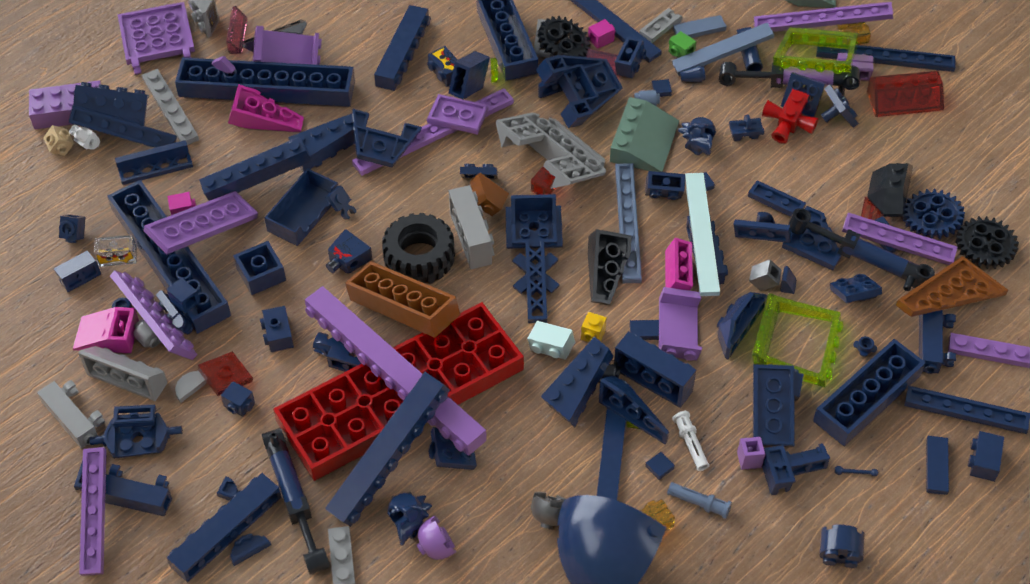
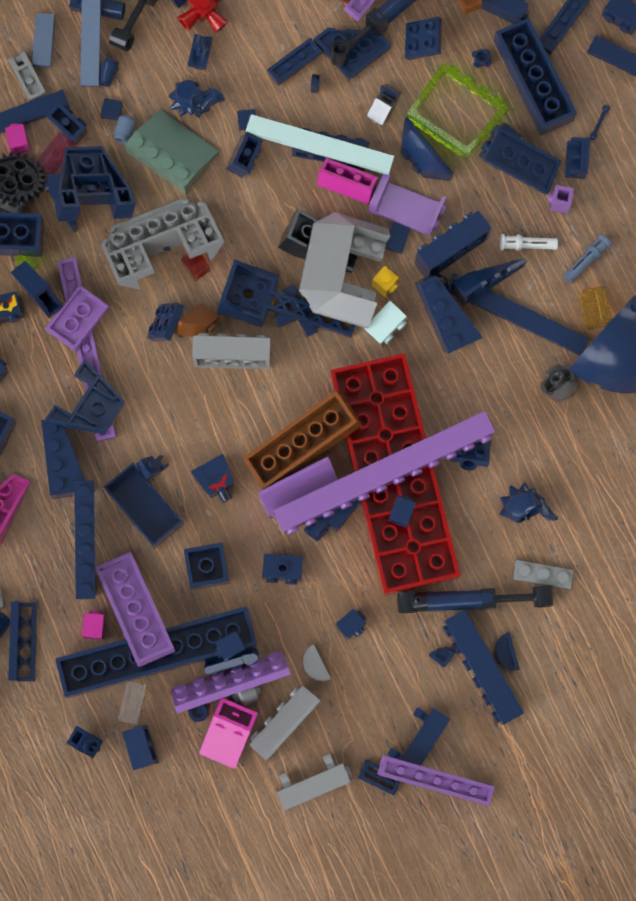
camera: 75 degrees left, 25 degrees up
(120, 439) = (359, 710): dark blue plate -> none
(134, 419) = (338, 739): dark blue tile -> none
(223, 371) = (316, 629): clear red tile -> none
(358, 394) = (402, 511): none -> dark blue brick
(363, 308) = (297, 485): none -> medium lavender slope
(387, 449) = (469, 502): dark blue brick -> none
(415, 230) = (232, 385): black tyre -> none
(434, 540) = (558, 490): medium lavender cylinder -> none
(564, 269) = (326, 266): none -> light grey slope
(628, 219) = (251, 199): sand blue tile -> none
(660, 465) = (541, 278): dark blue tile -> none
(681, 45) = (66, 68): bright green brick -> none
(762, 231) = (332, 90): dark blue tile -> none
(777, 469) = (584, 184): dark blue hinge -> none

